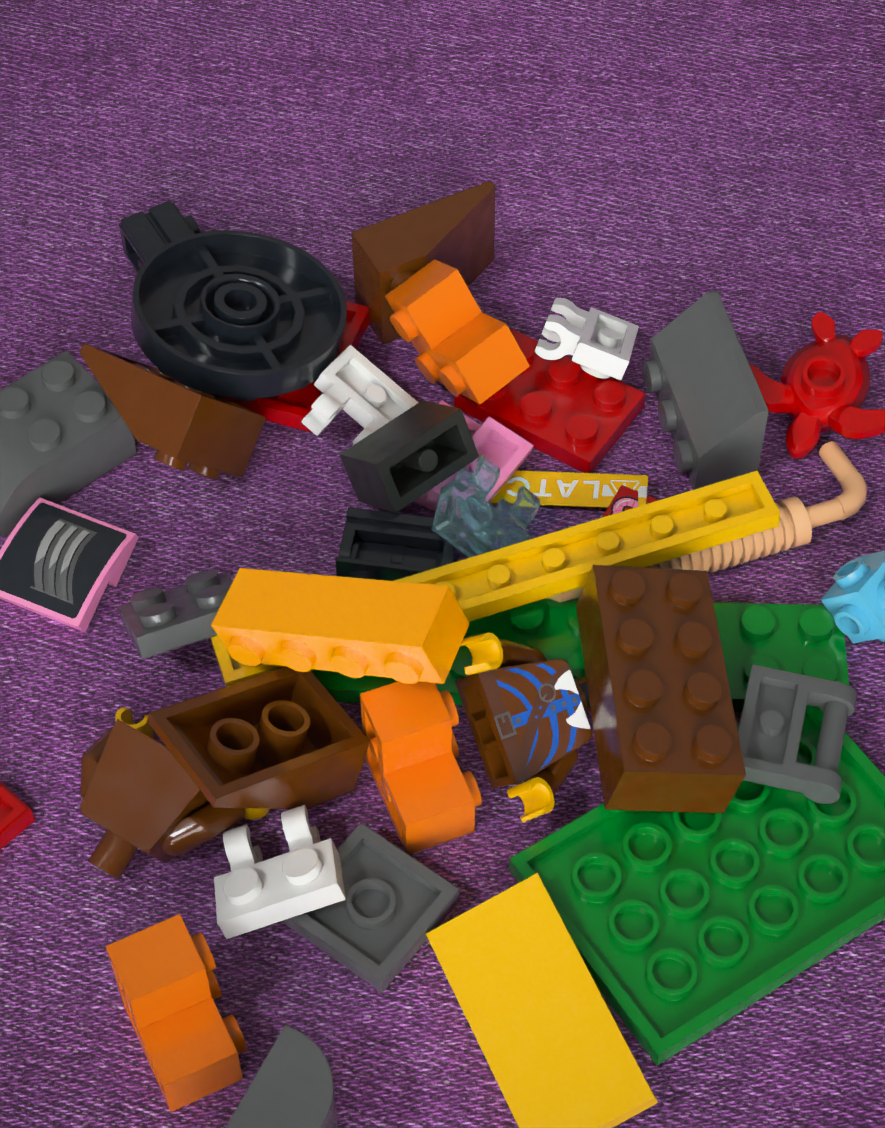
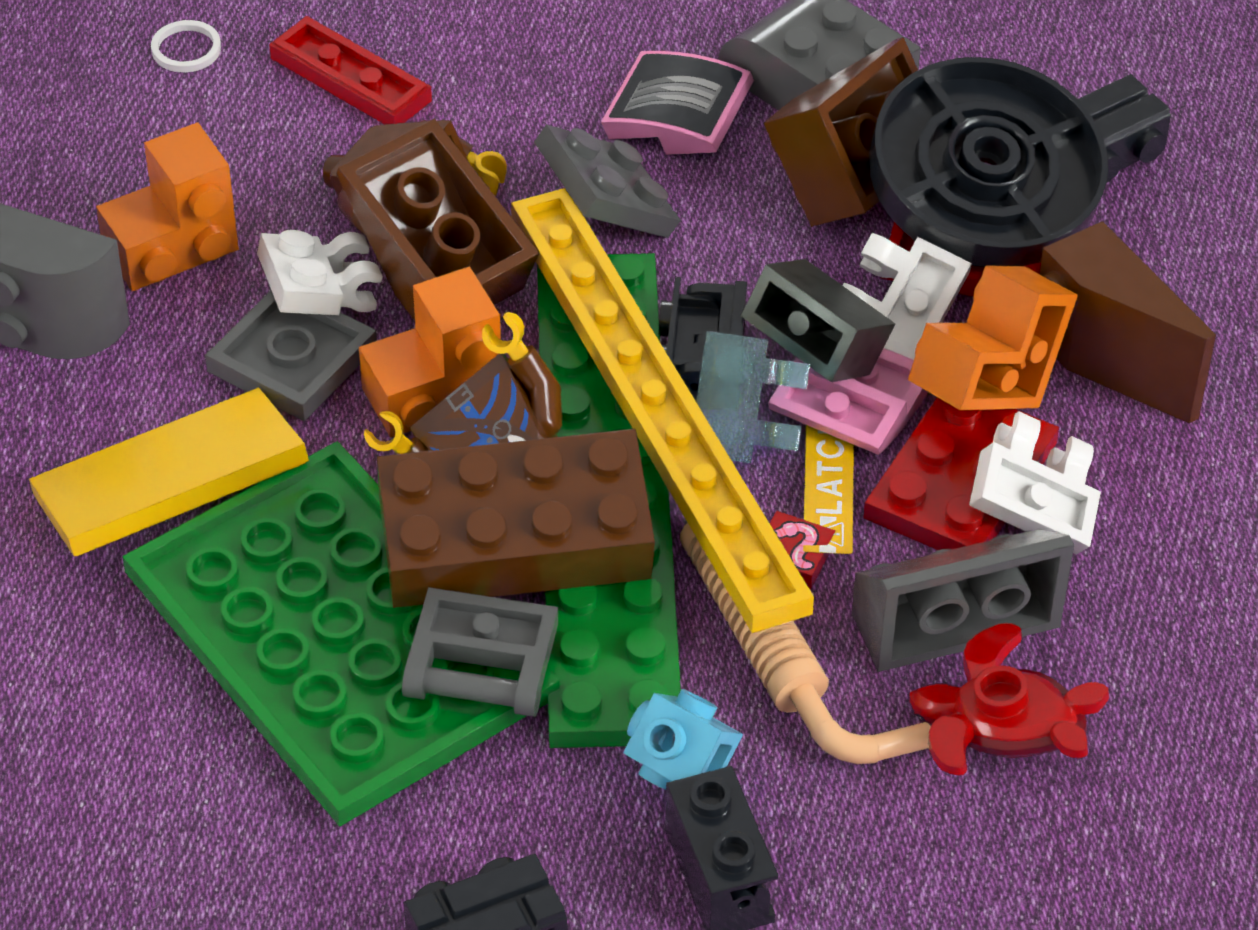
camera: 85 degrees right, 5 degrees down
(342, 625) = (532, 234): light orange brick -> none

